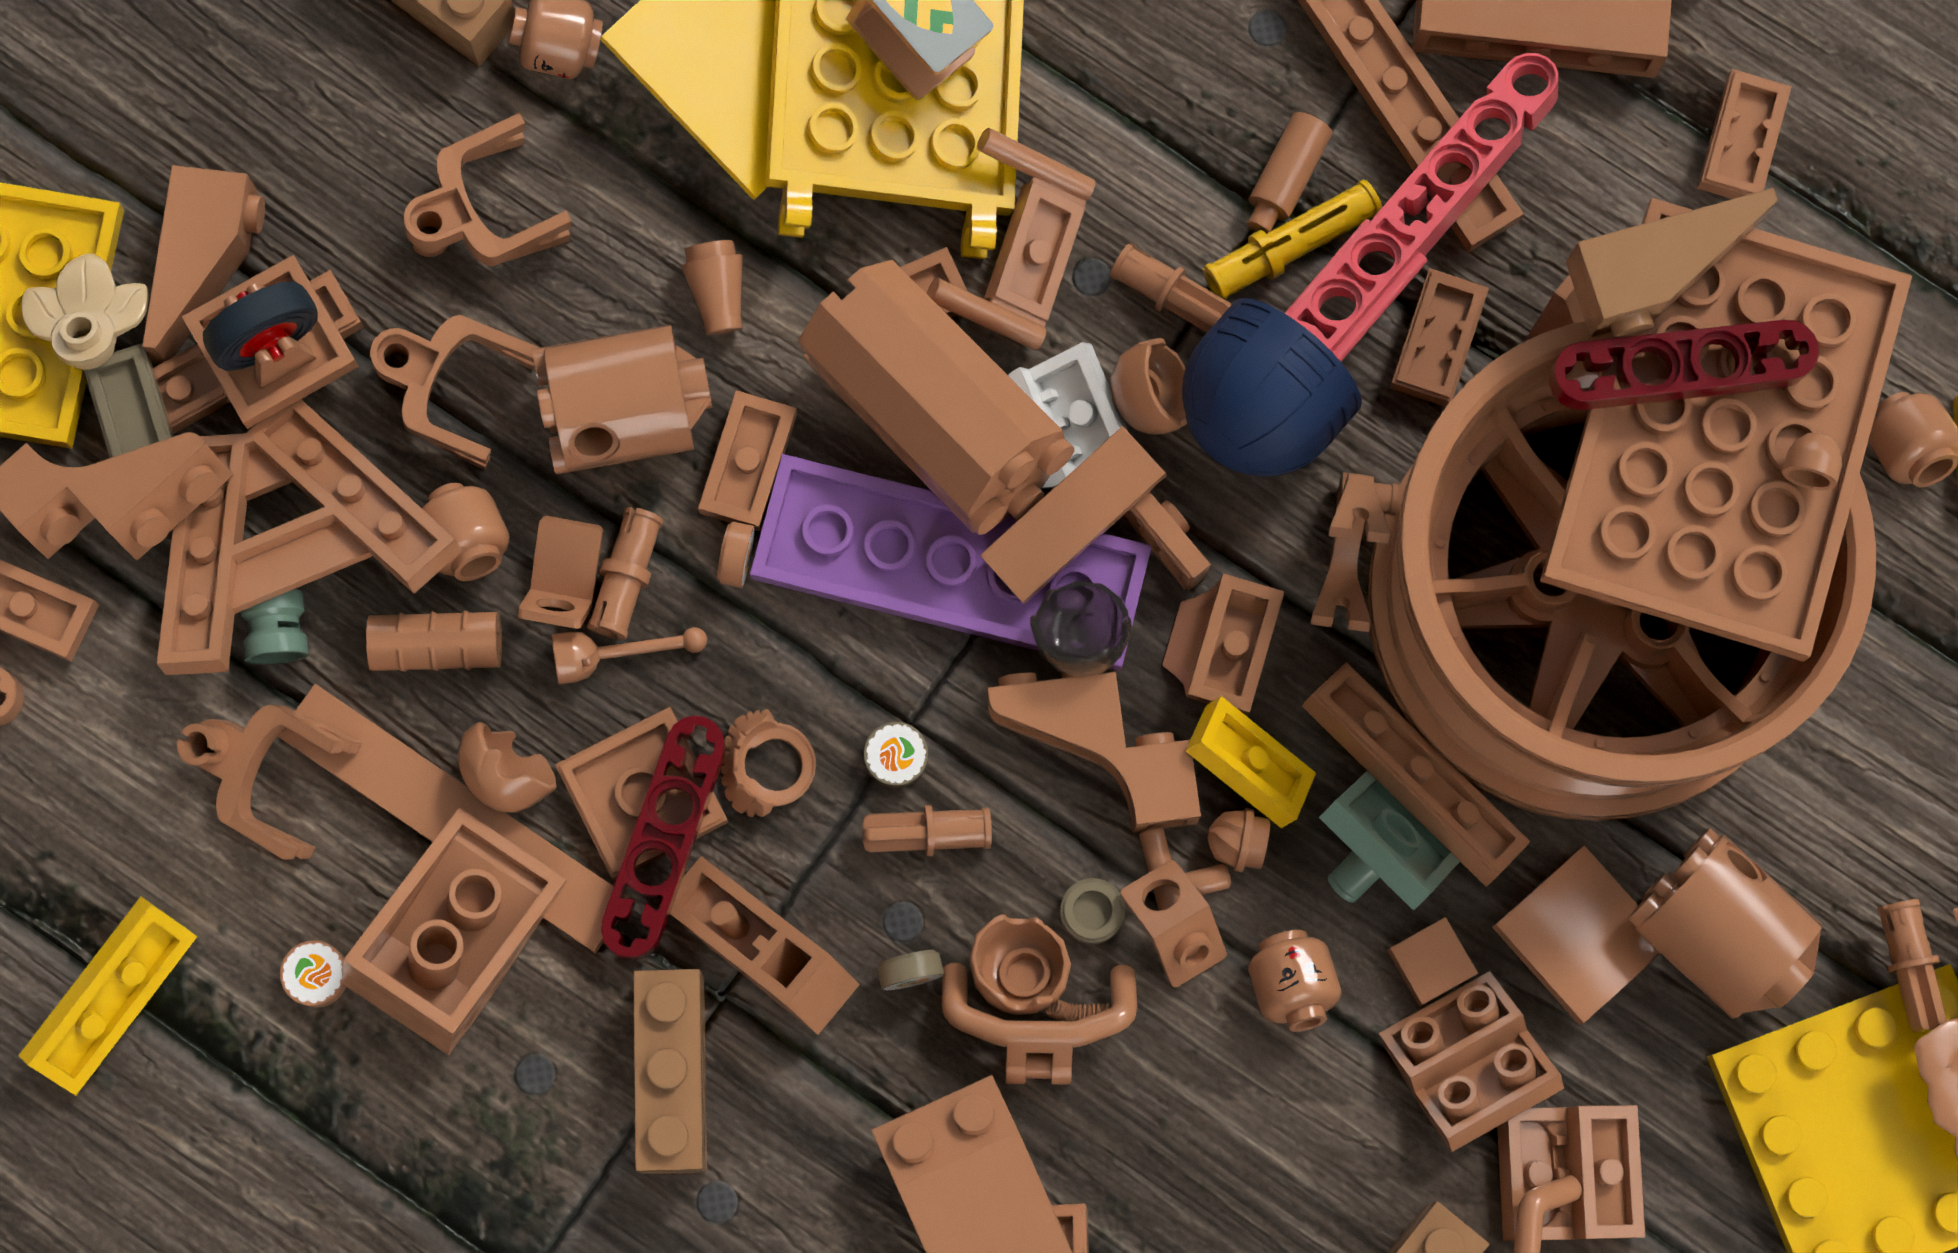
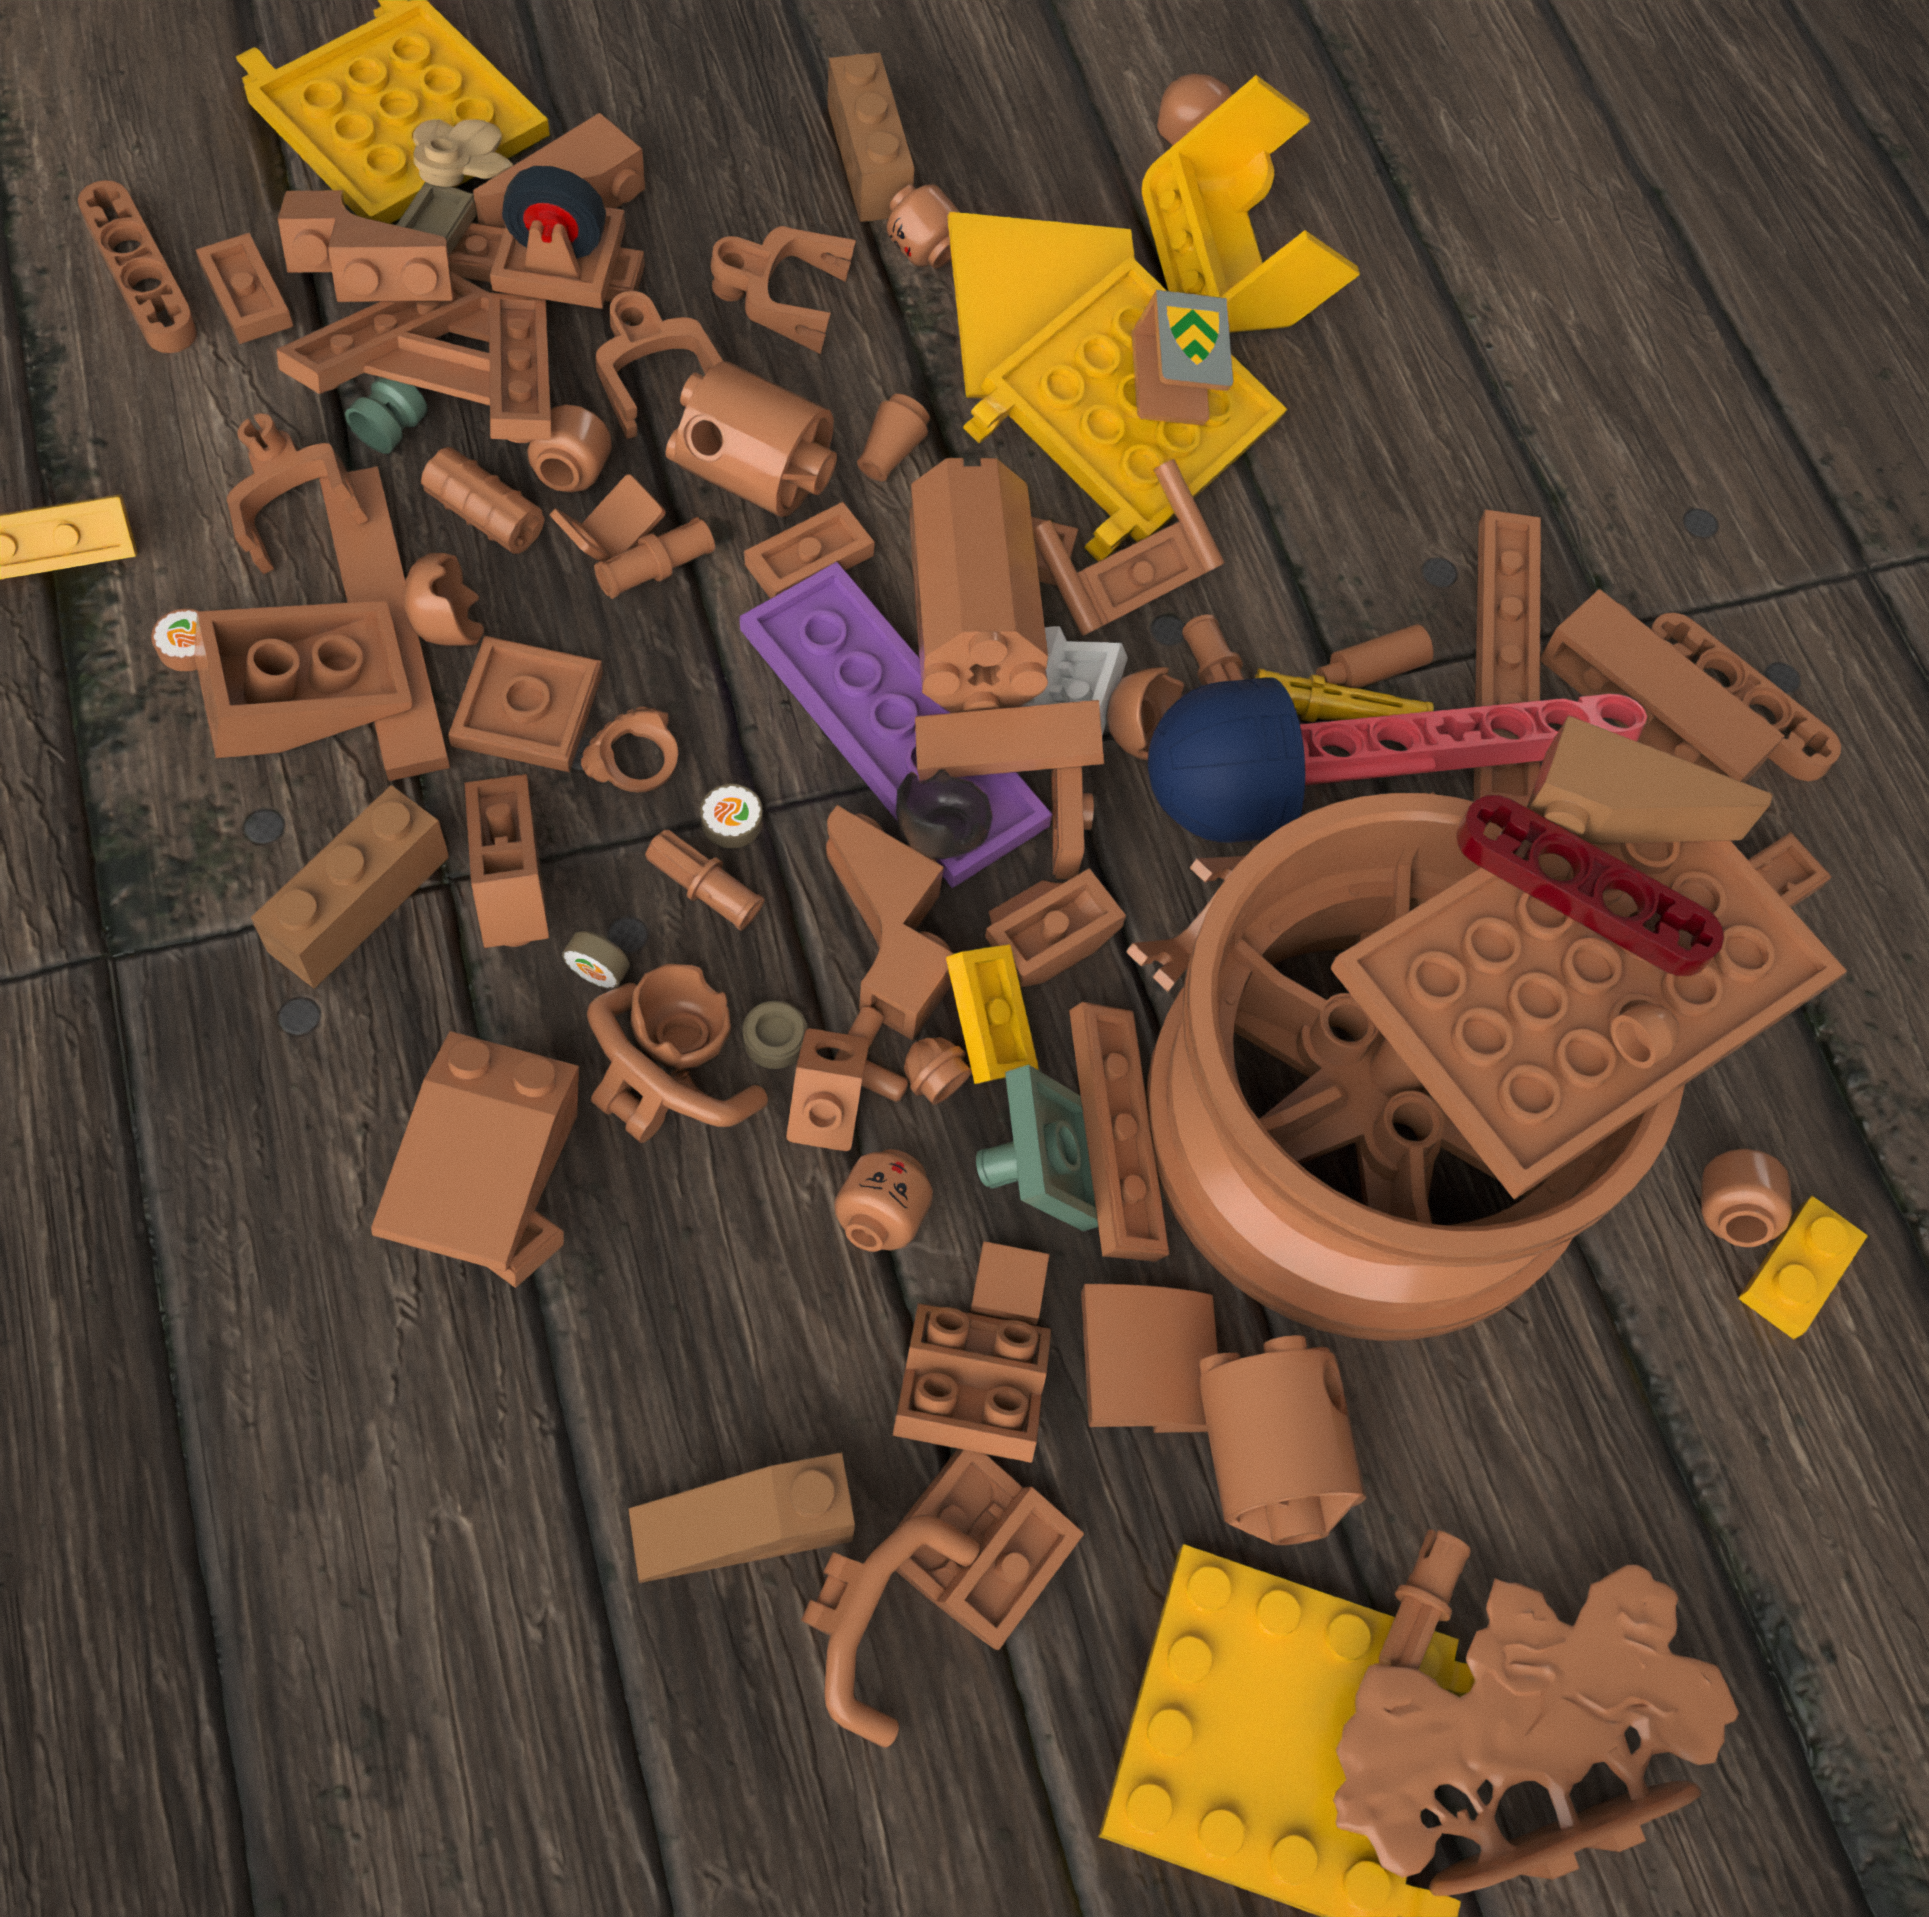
camera: 35 degrees right, 15 degrees down
(578, 655) = (569, 581): nougat hinge -> none
(654, 834) = (503, 723): dark red beam -> none
(736, 554) = (741, 596): nougat tile -> none

